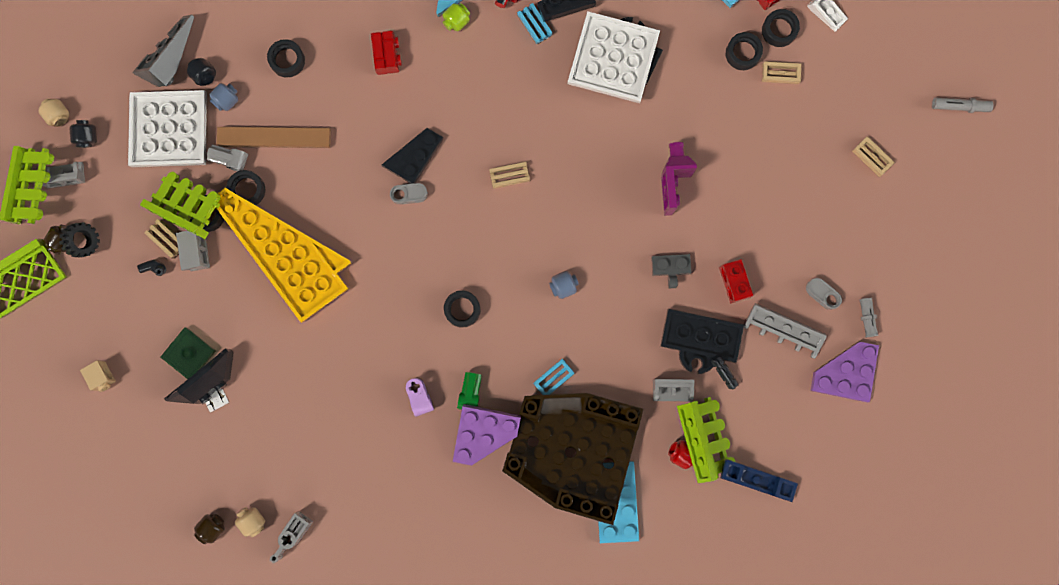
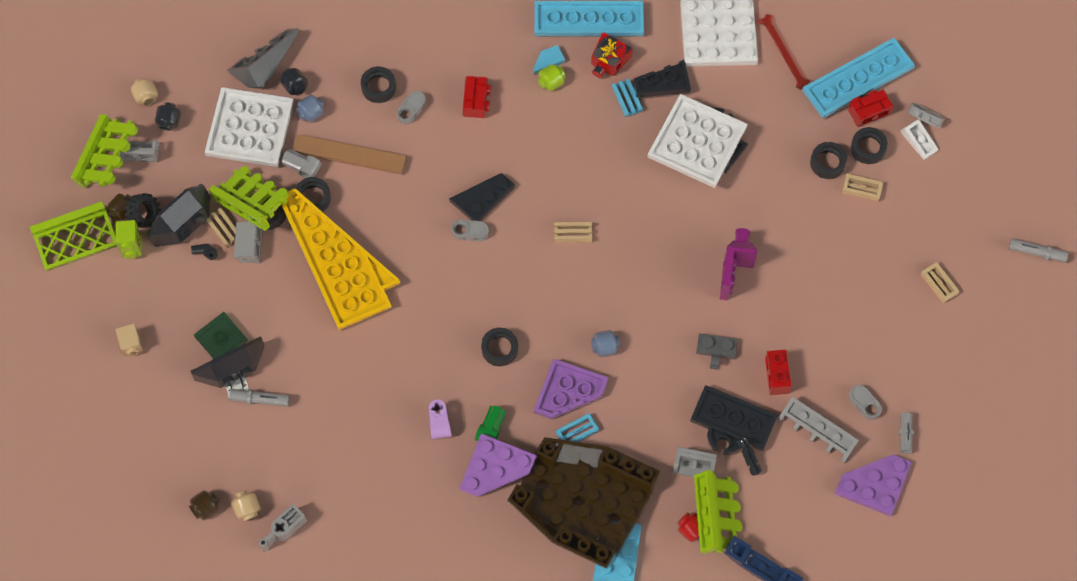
camera: 10 degrees right, 15 degrees down
(71, 273) = (128, 239): none -> lime brick
(119, 237) = (181, 217): none -> black wedge
(230, 409) = (259, 397): none -> light grey pin
(326, 72) = (414, 104): none -> light grey piece
(537, 338) = (568, 389): none -> medium lavender plate

